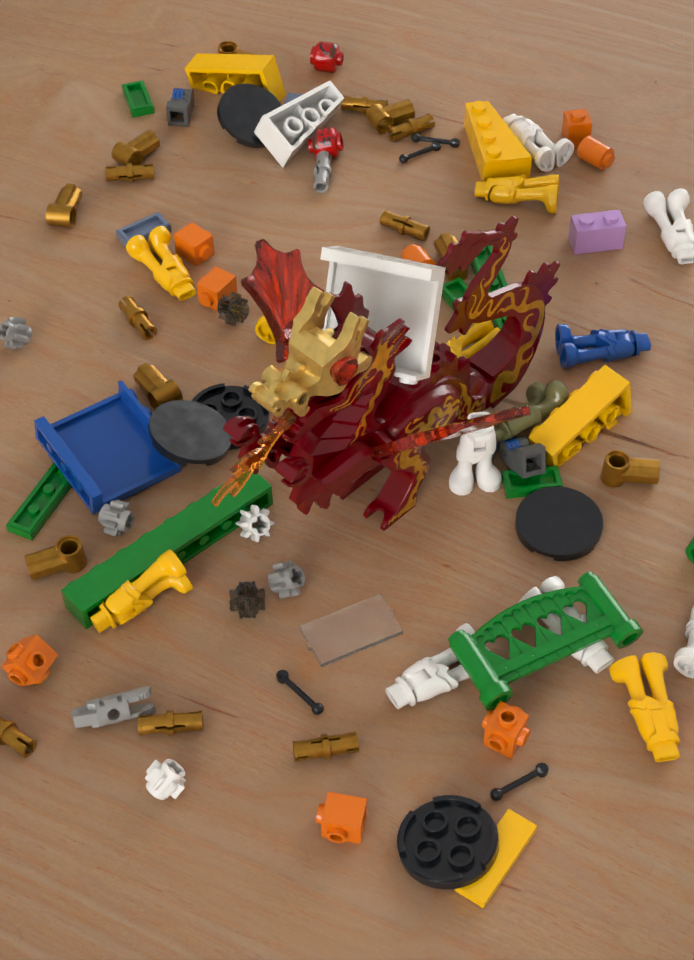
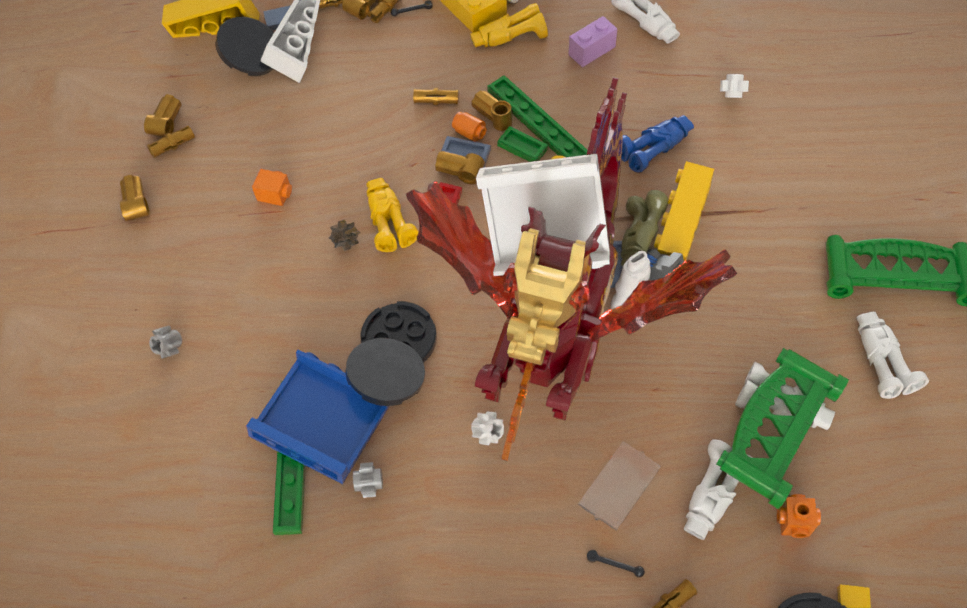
camera: 25 degrees left, 10 degrees up
(65, 555) = (336, 547): pearl gold piece -> none
(137, 317) = (264, 277): pearl gold pin -> none
(137, 596) = (433, 546): yellow piece -> none
(138, 98) = (132, 66): green tile -> none
(142, 227) = (217, 192): sand blue tile -> none
(156, 385) = (329, 340): pearl gold piece -> none
(172, 273) = (269, 224): yellow piece -> none
(180, 104) = (177, 58): dark grey leg -> none
(185, 534) = (426, 488): green brick -> none
(214, 286) = (317, 221): orange brick -> none
(247, 600) = (526, 509): clear smoke gear -> none
(286, 579) = (545, 468): light grey gear -> none
(322, 172) = (337, 74): light grey pin -> none
(326, 140) = (325, 47): red head -> none
(436, 146) = (414, 14): black hinge -> none
(541, 770) = (837, 535): black hinge -> none
(559, 523) = (725, 315): black tile -> none
(621, 468) = (743, 241): pearl gold piece -> none
(654, 715) = (894, 447): yellow piece -> none

